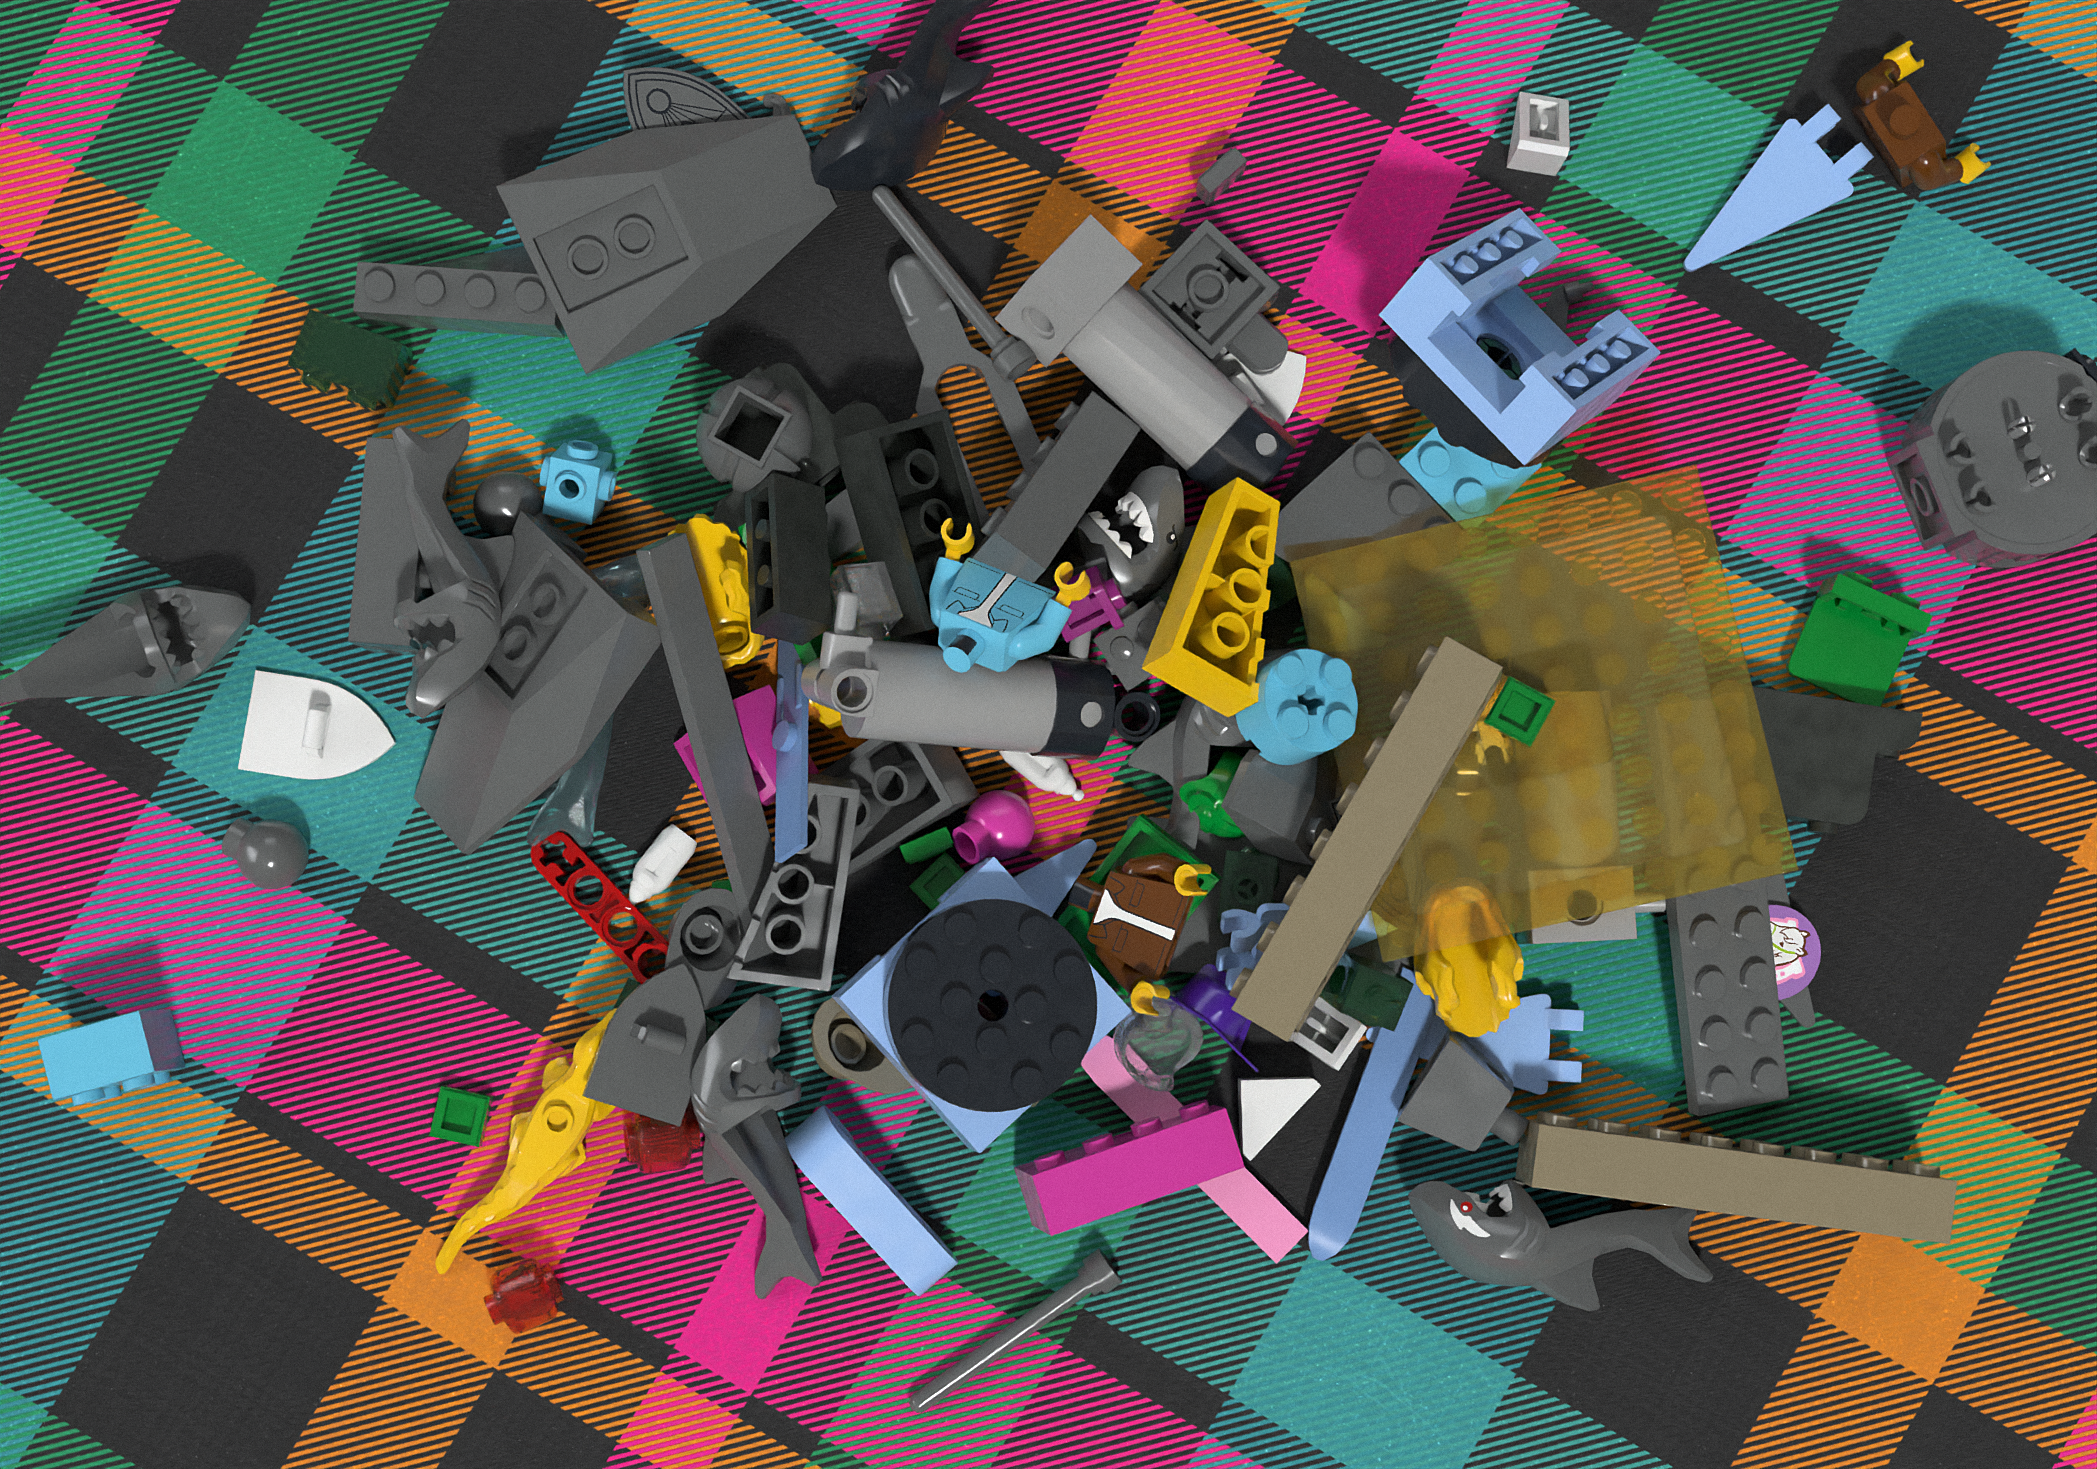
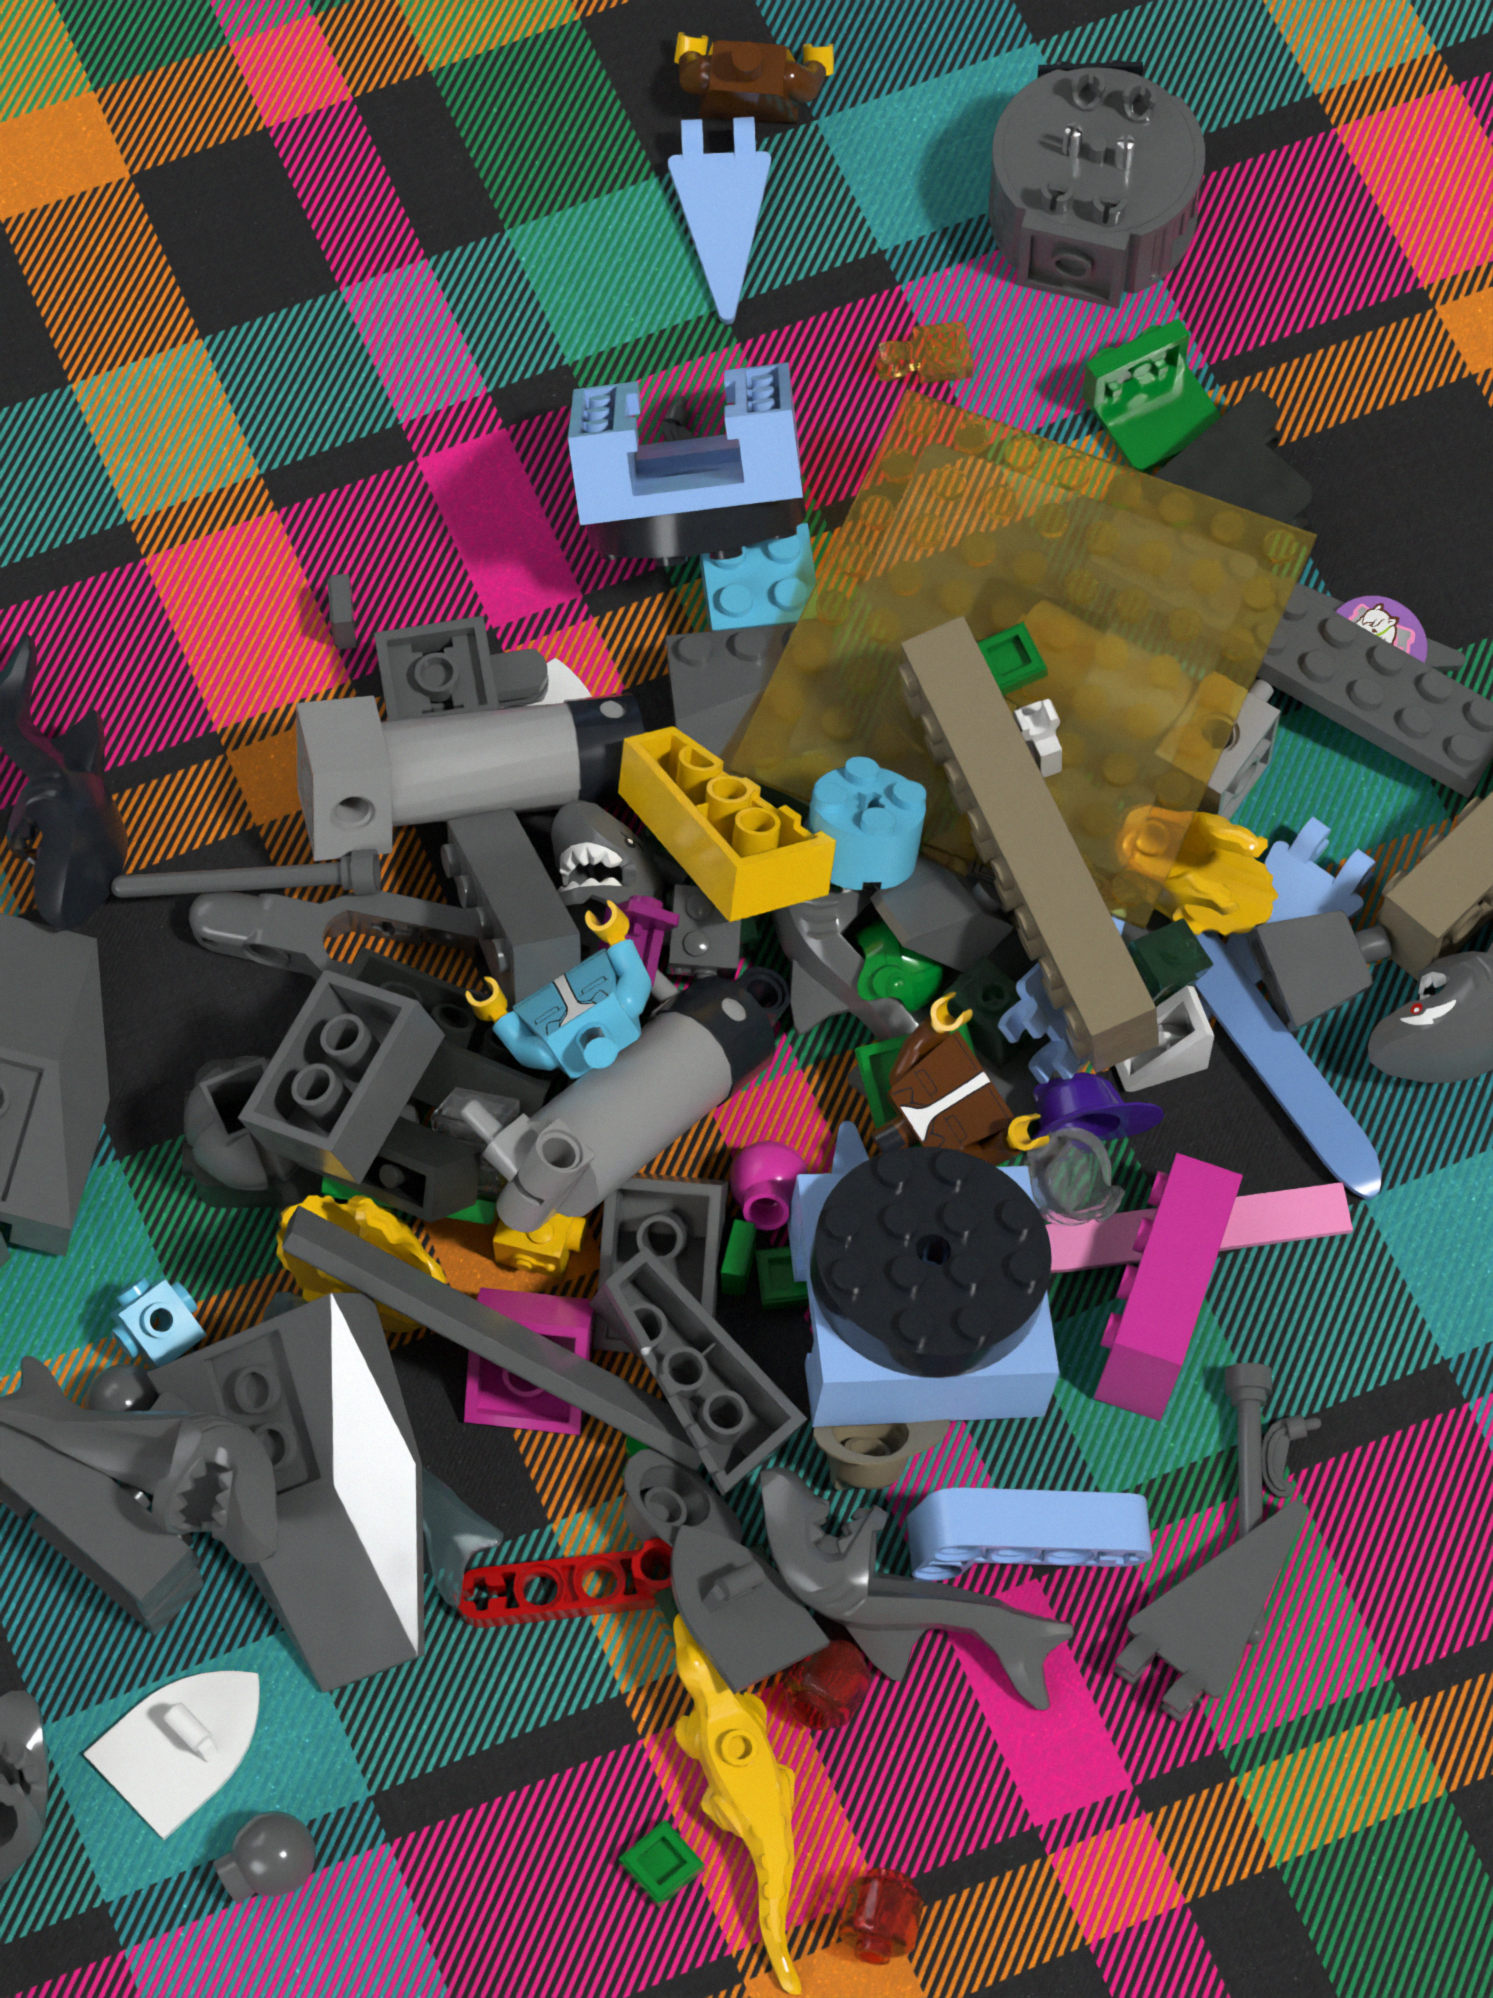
camera: 55 degrees left, 20 degrees down
(660, 863) = (566, 1507): white piece -> none
(791, 748) = (542, 1282): medium blue piece -> none
(797, 490) = (342, 1076): none -> dark grey brick
(906, 1368) = (1210, 1615): none -> dark grey flag
(1044, 773) = (742, 1118): white piece -> none
(1067, 1324) = (1276, 1447): none -> dark grey piece
(1267, 1106) = (1201, 1126): white slope -> none
(1463, 783) = (1038, 727): none -> white plate
(1539, 134) = (522, 350): white slope -> none
(1773, 445) = (935, 351): none -> clear yellow plate

